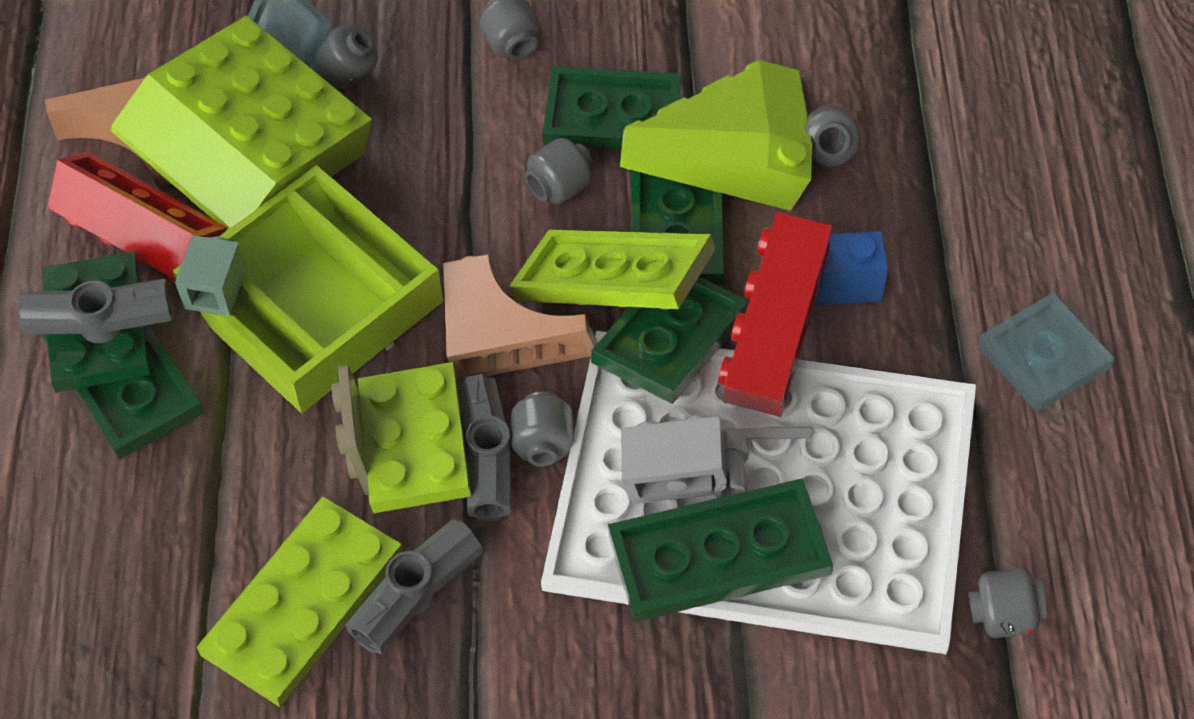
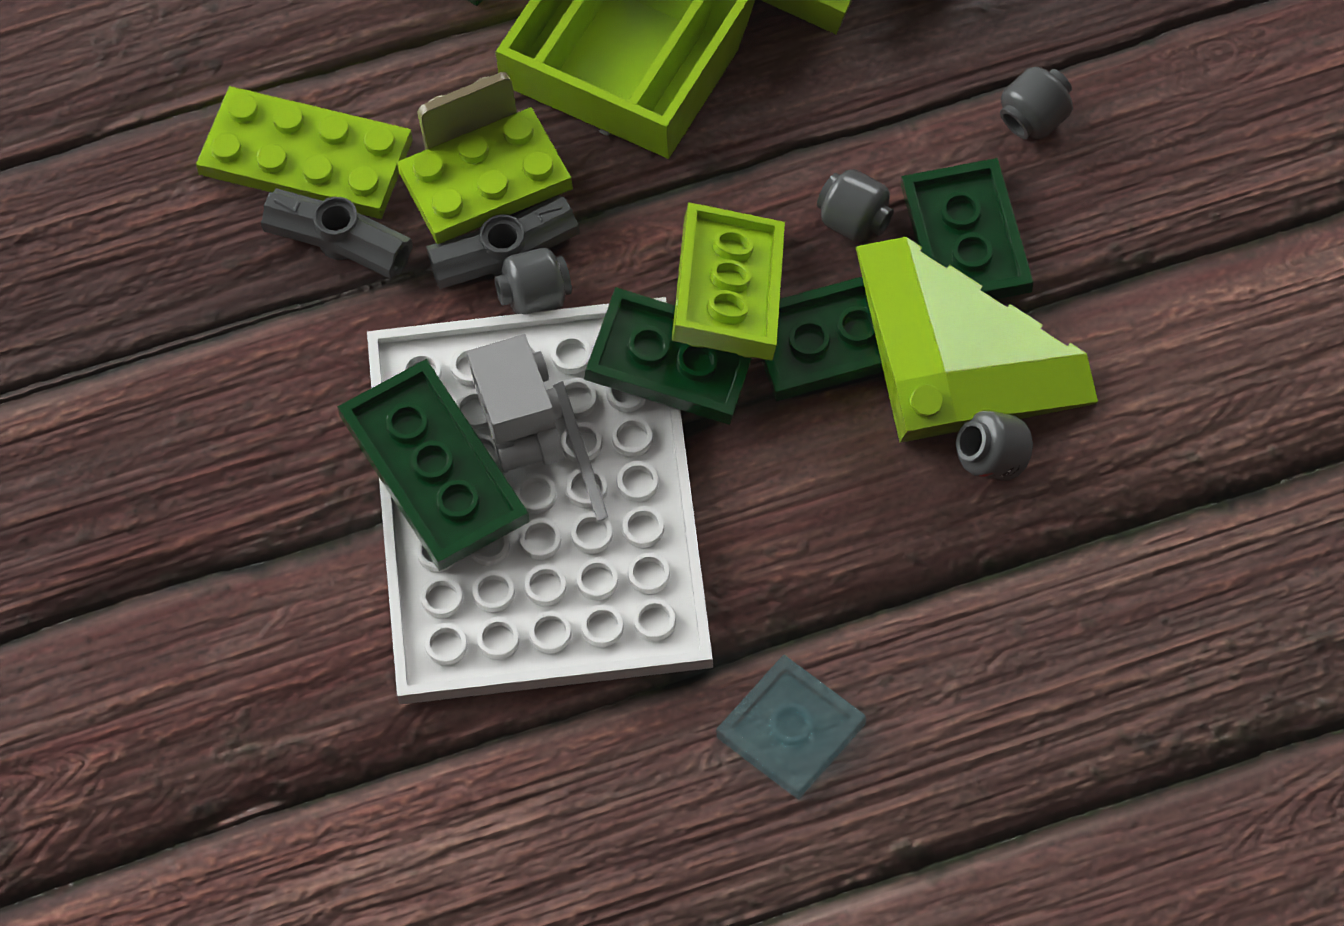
camera: 75 degrees right, 5 degrees up
(494, 333) = (642, 198): nougat arch -> none
(777, 314) = (708, 437): red brick -> none
(854, 269) = (811, 487): blue hinge -> none
(1008, 603) = (460, 740): dark grey head -> none

